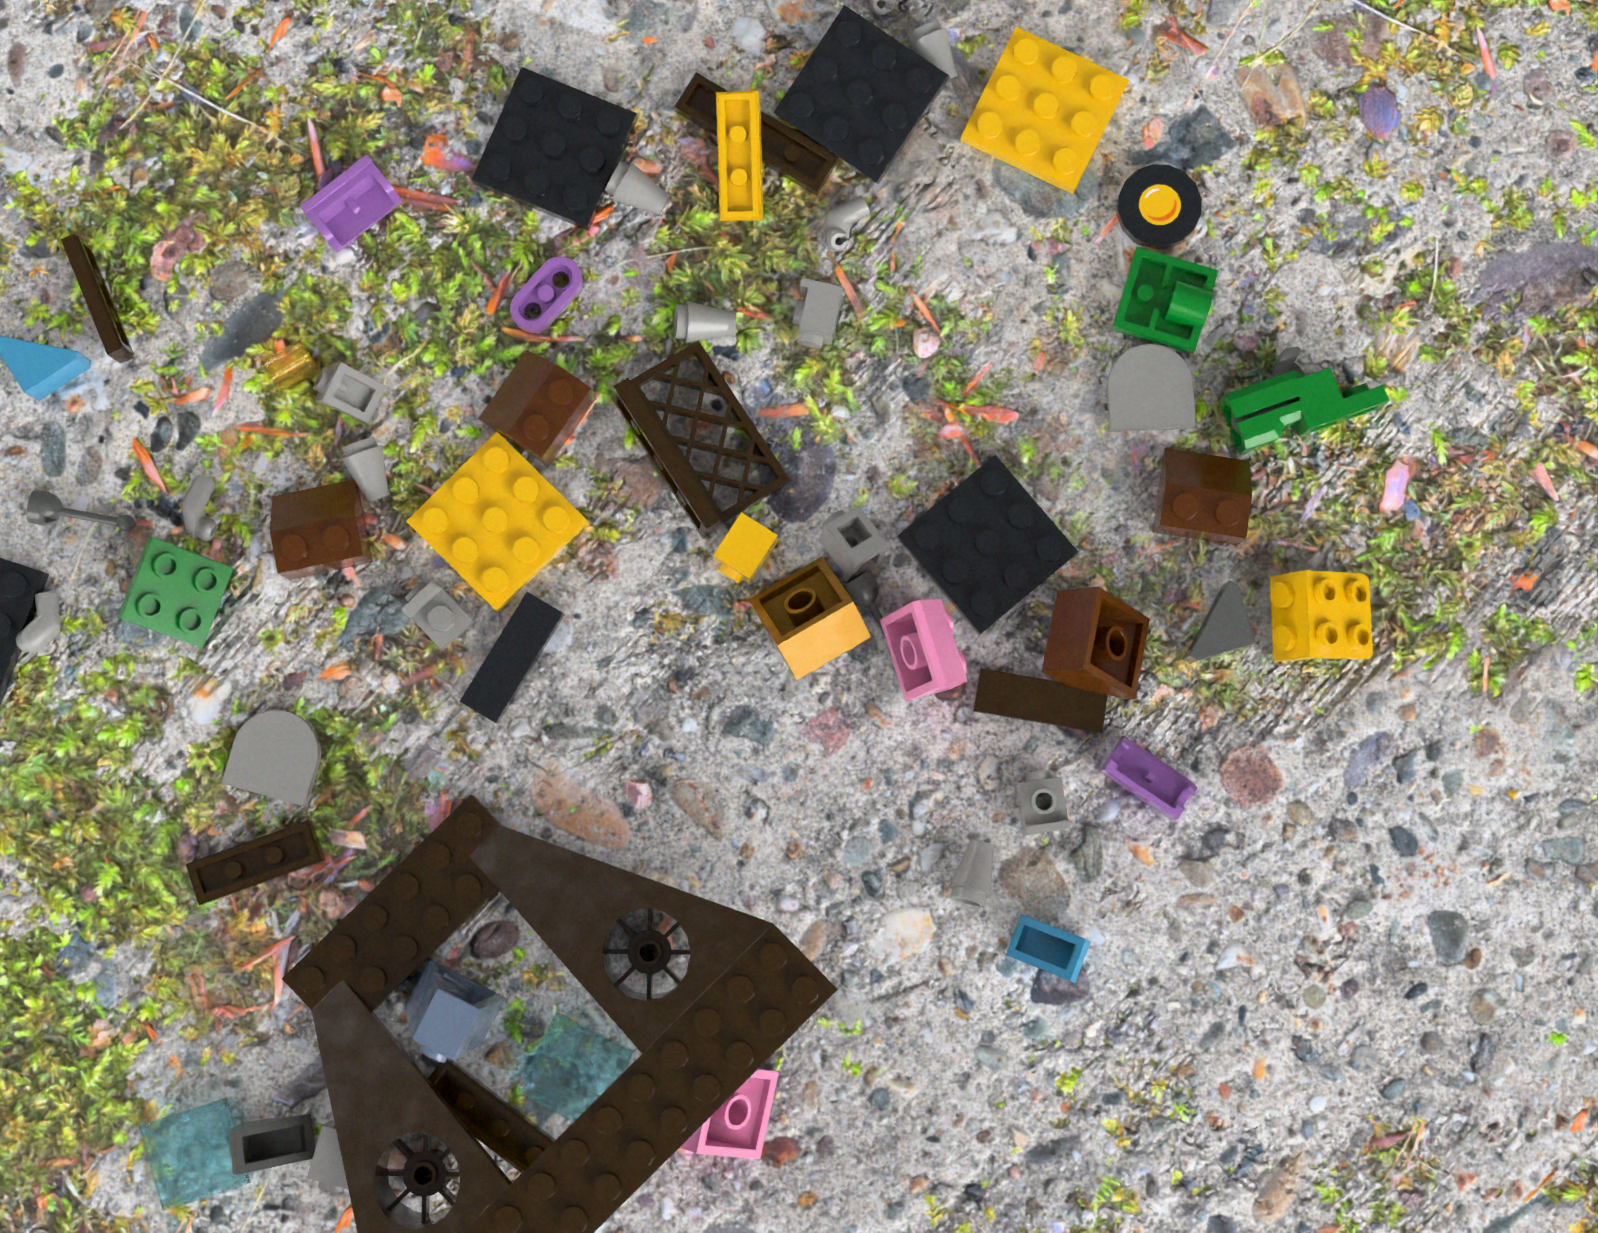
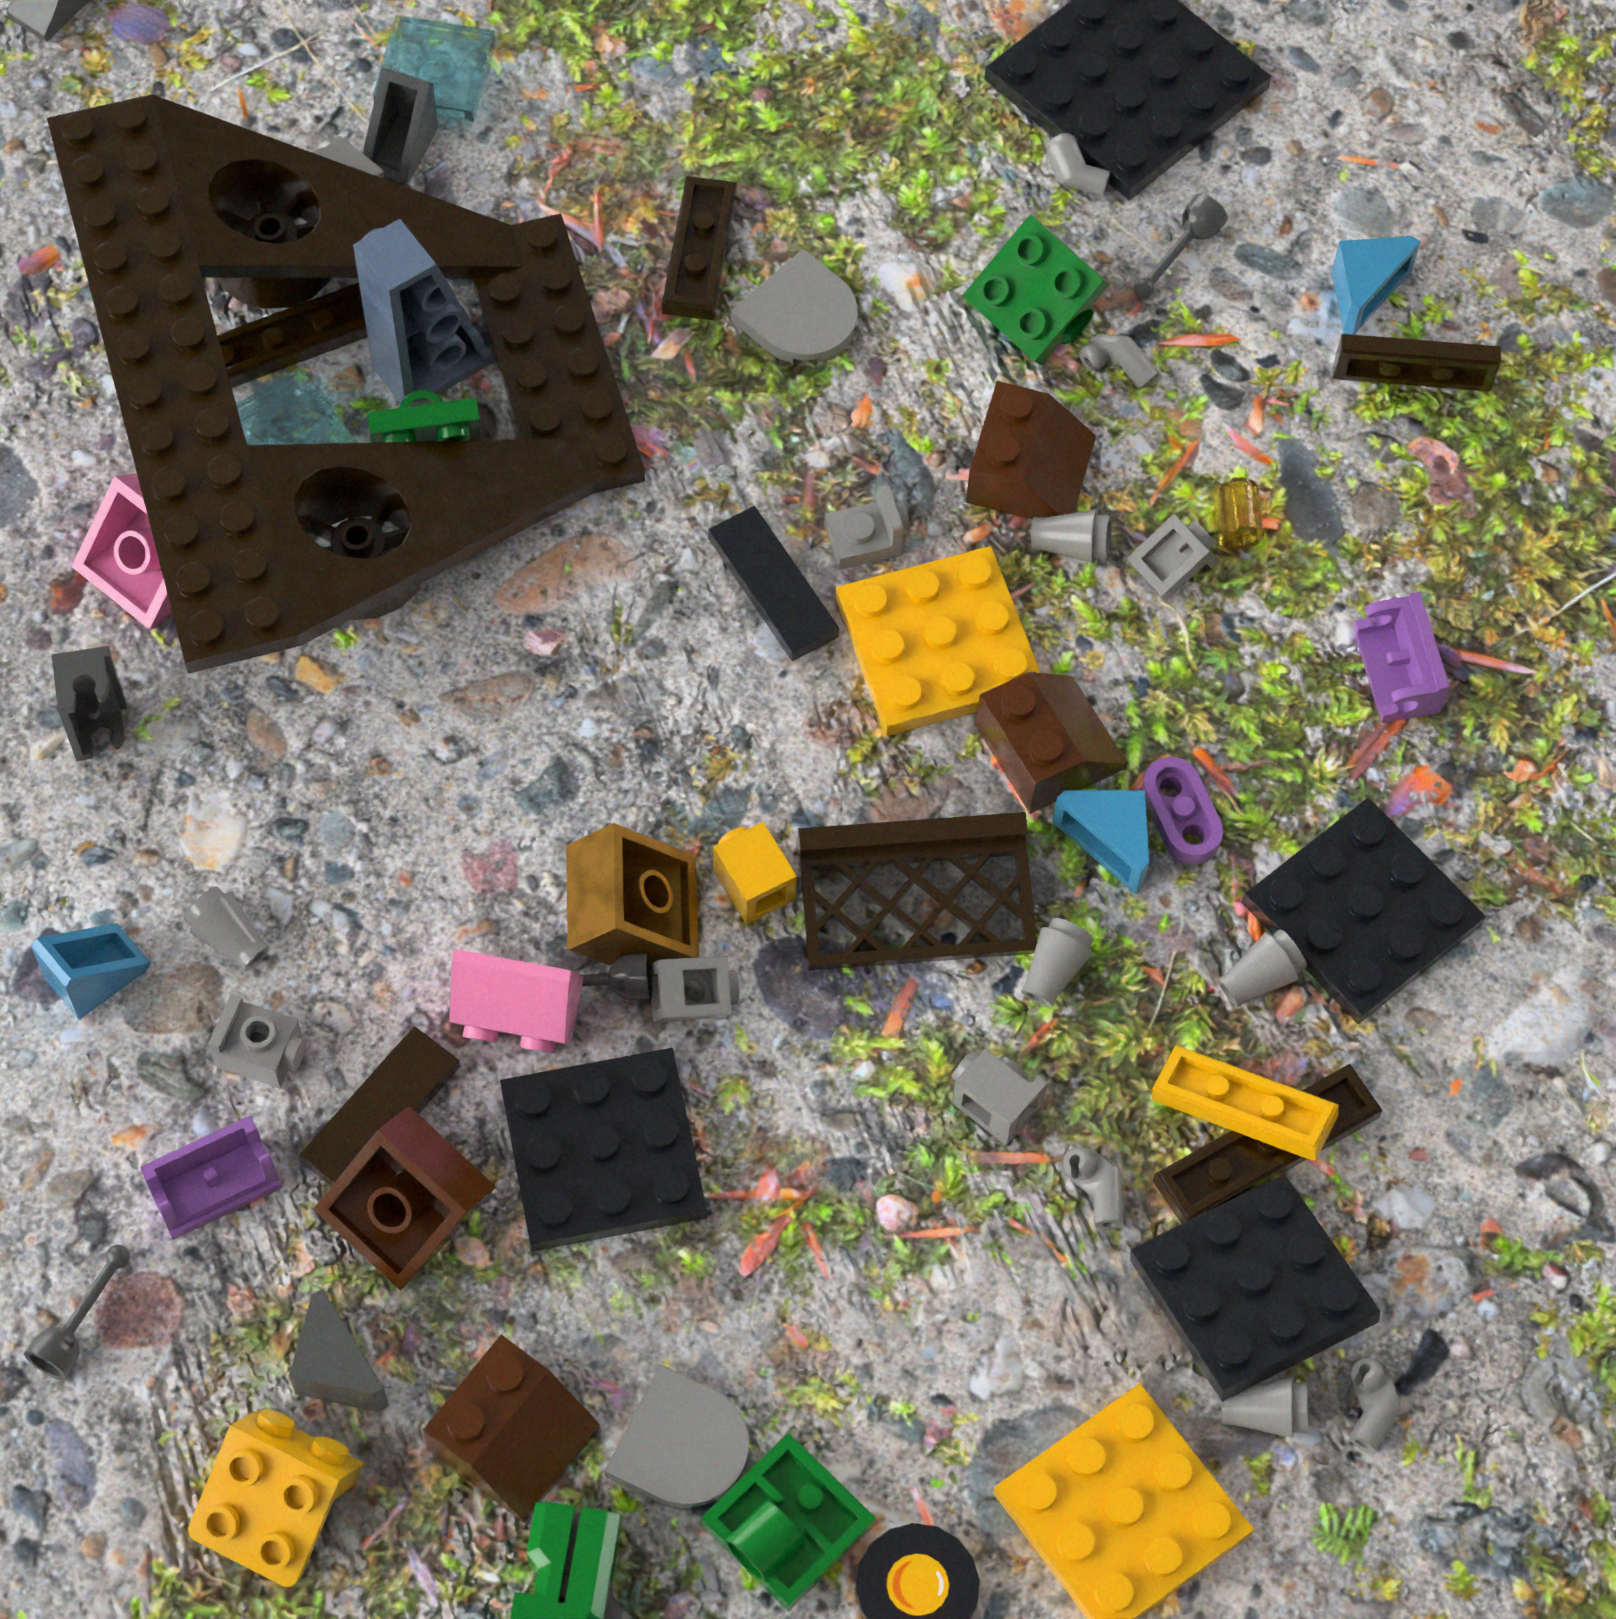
camera: 110 degrees right, 20 degrees down
(519, 944) = (426, 418): none -> green plate
(588, 329) = (1109, 828): none -> dark azure slope
(865, 1068) = (89, 697): none -> dark grey hinge
(1308, 807) = (56, 1348): none -> dark grey hinge

